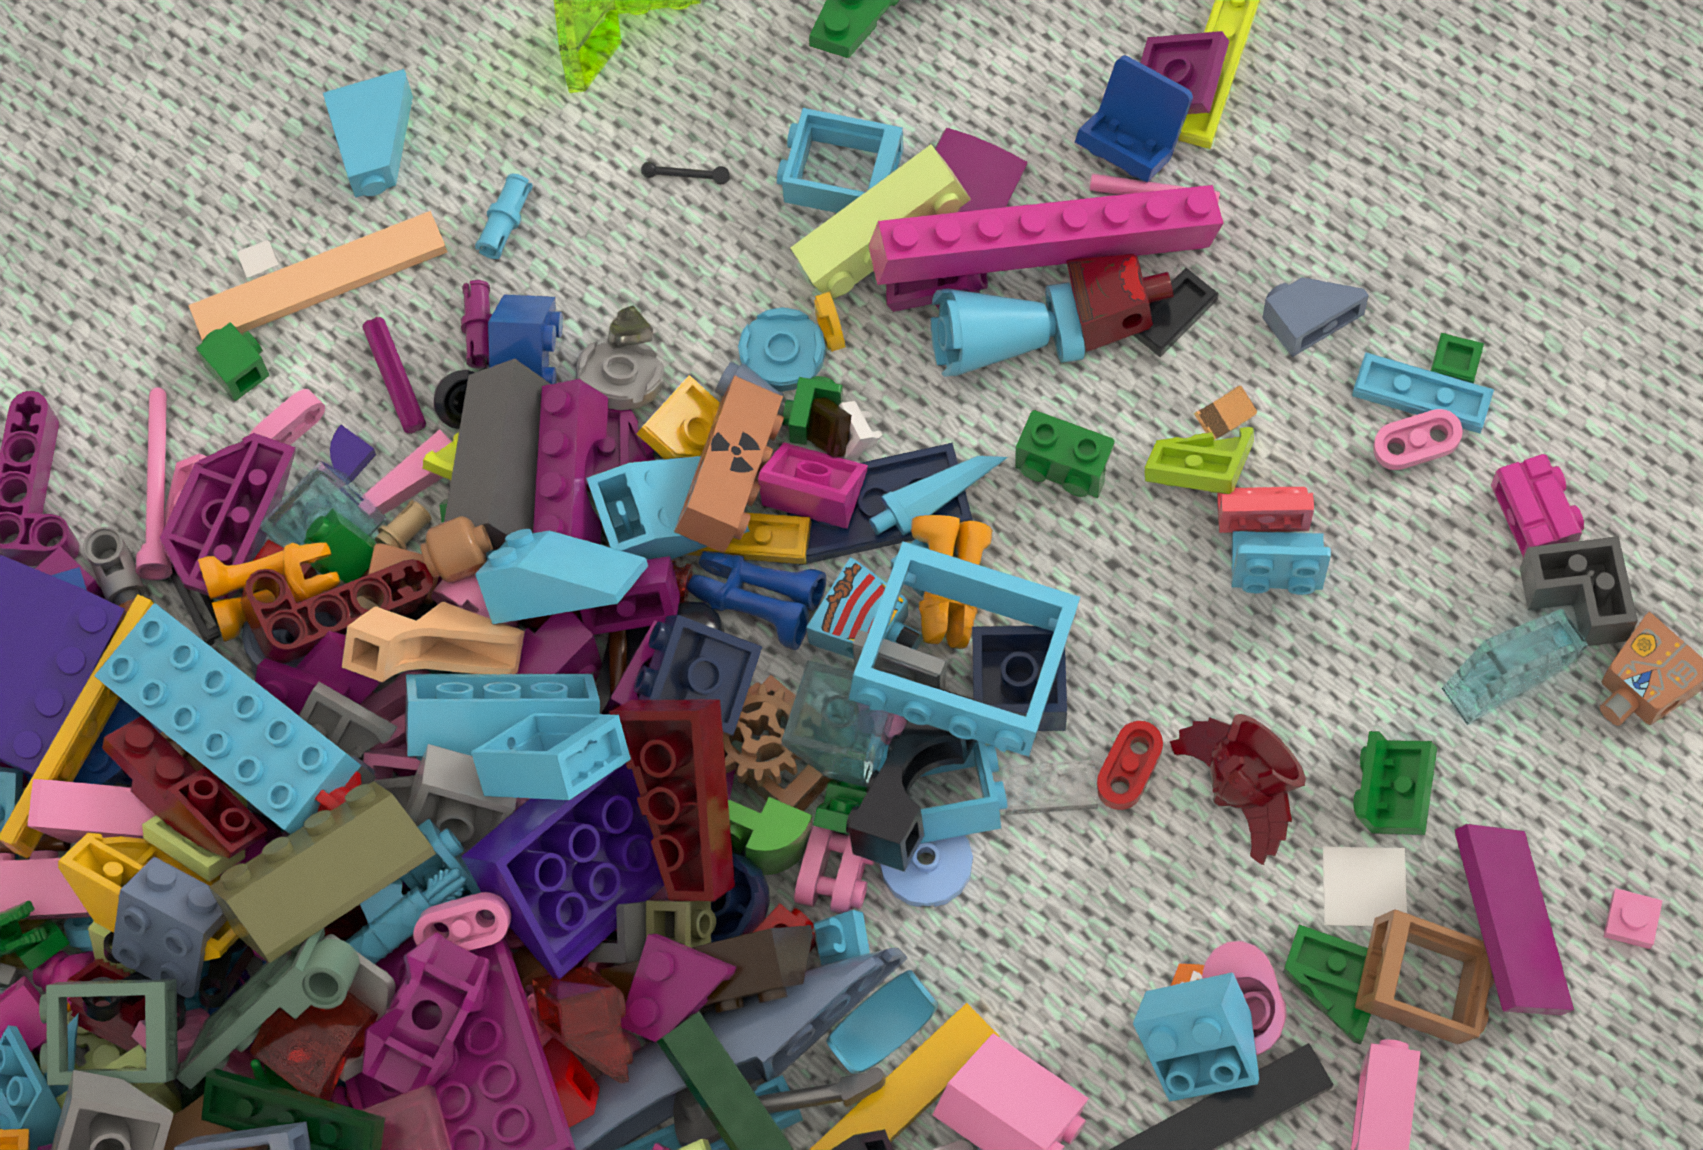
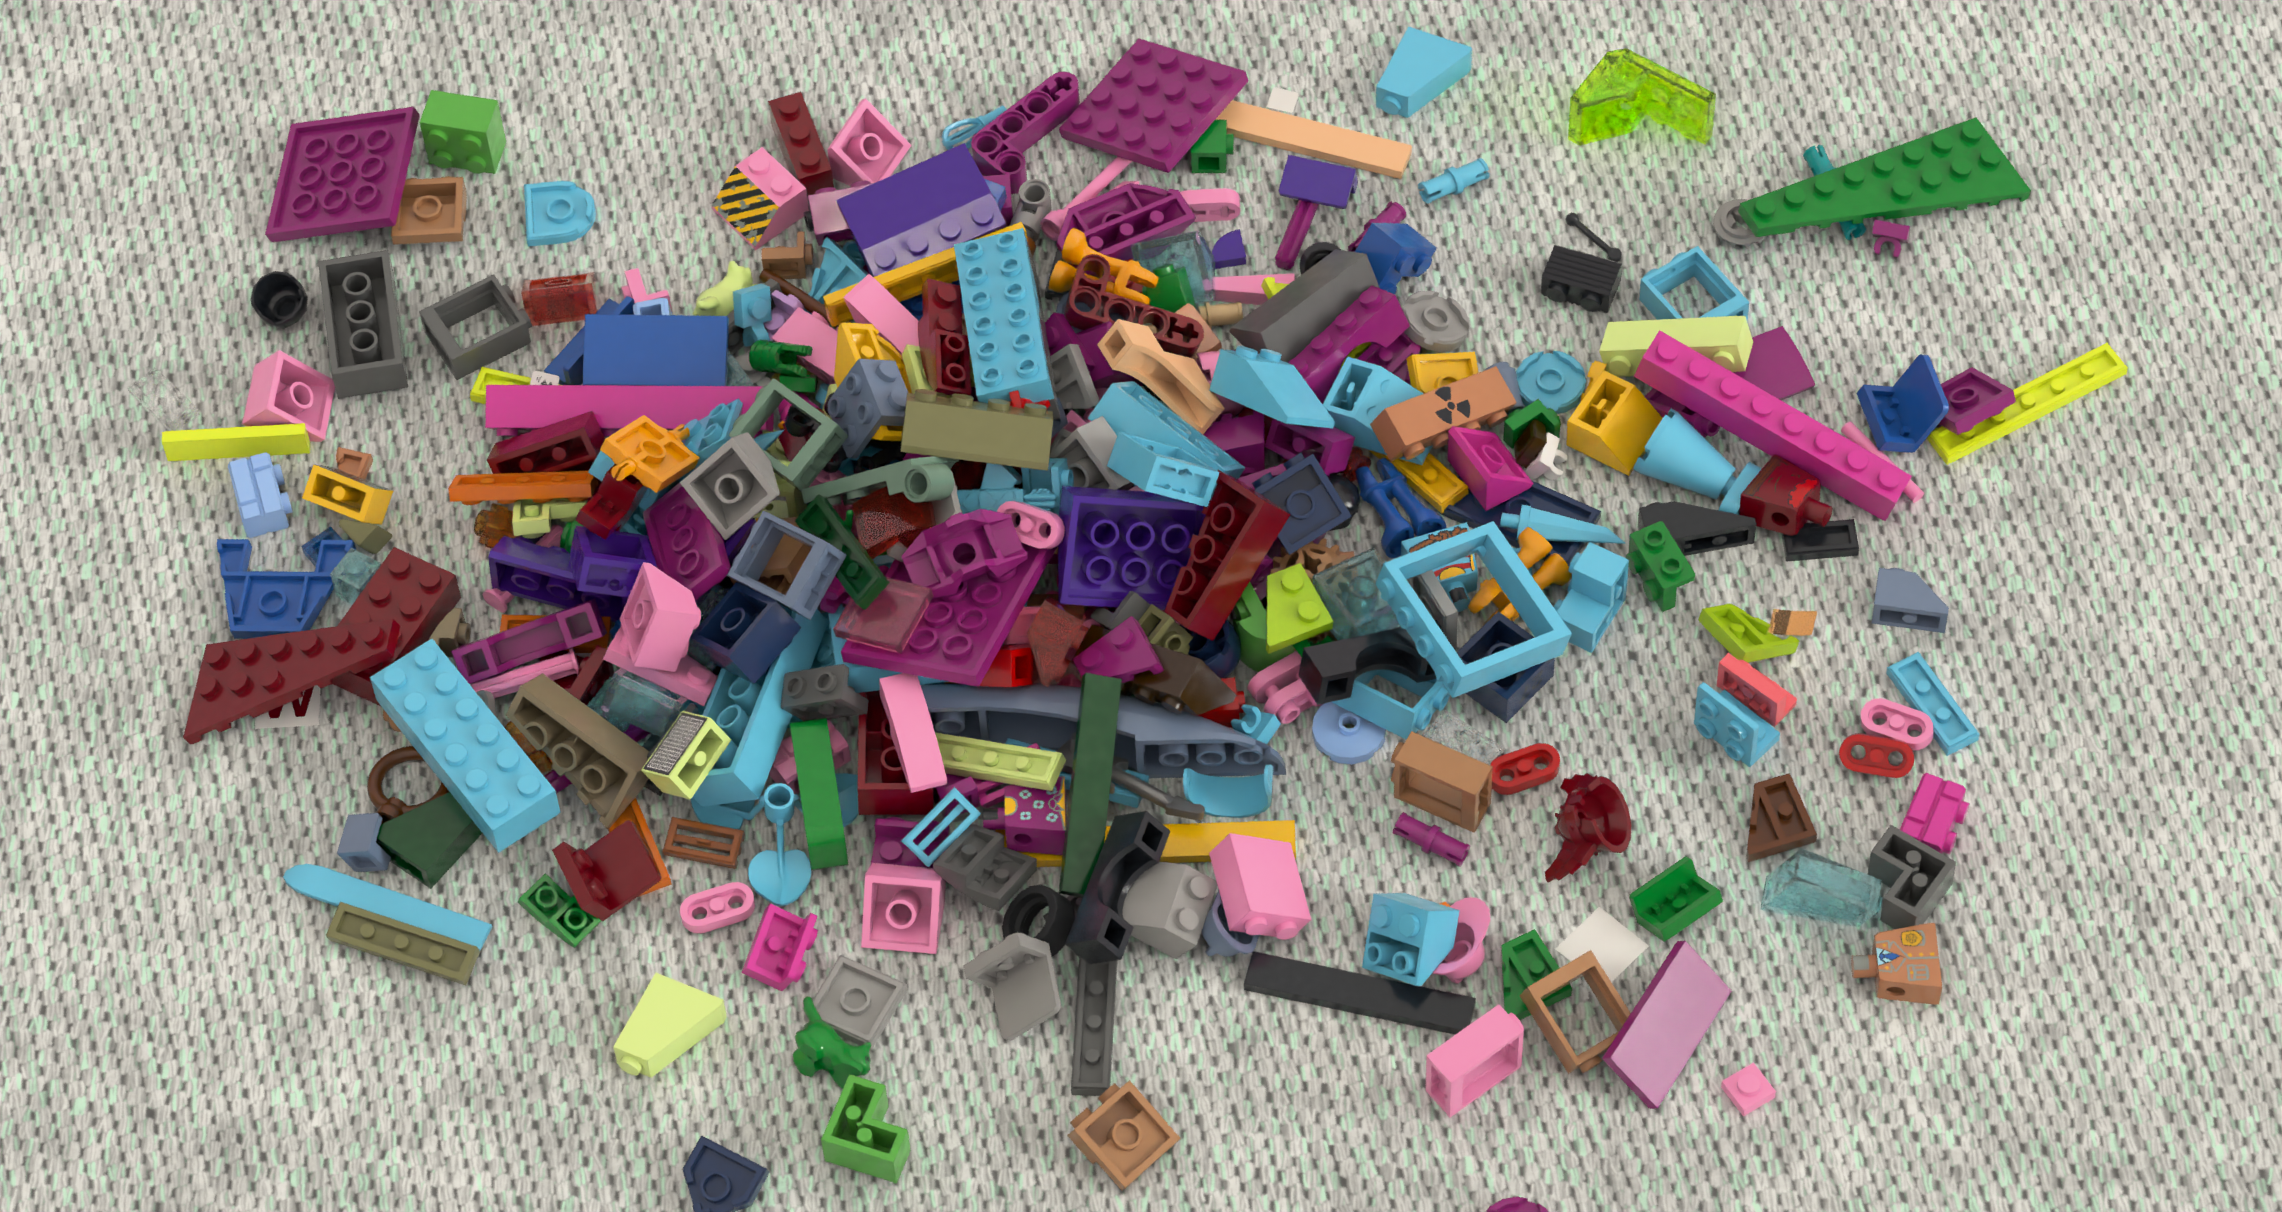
camera: 40 degrees right, 10 degrees down
(140, 361) = (1153, 105): none -> magenta plate
(377, 318) = (1318, 182): none -> dark purple panel
(455, 549) = (1227, 331): medium nougat head -> none
(629, 329) = (1464, 300): clear smoke tile -> none
(718, 223) = (1581, 279): none -> black brick
(789, 789) = (1293, 609): none -> lime wing
(792, 60) = (1725, 225): none -> light grey gear
(888, 345) = (1612, 423): none -> yellow slope
(1033, 532) = (1594, 594): none -> medium azure brick
(1054, 390) = (1699, 528): none -> black slope
(1078, 846) = (1441, 781): none -> medium nougat window
(1113, 911) = (1431, 839): none -> magenta pin
(1402, 622) = (1777, 819): none -> reddish brown wing
(1427, 486) = (1876, 756): none -> red plate
(1457, 357) = (1976, 700): green tile -> none

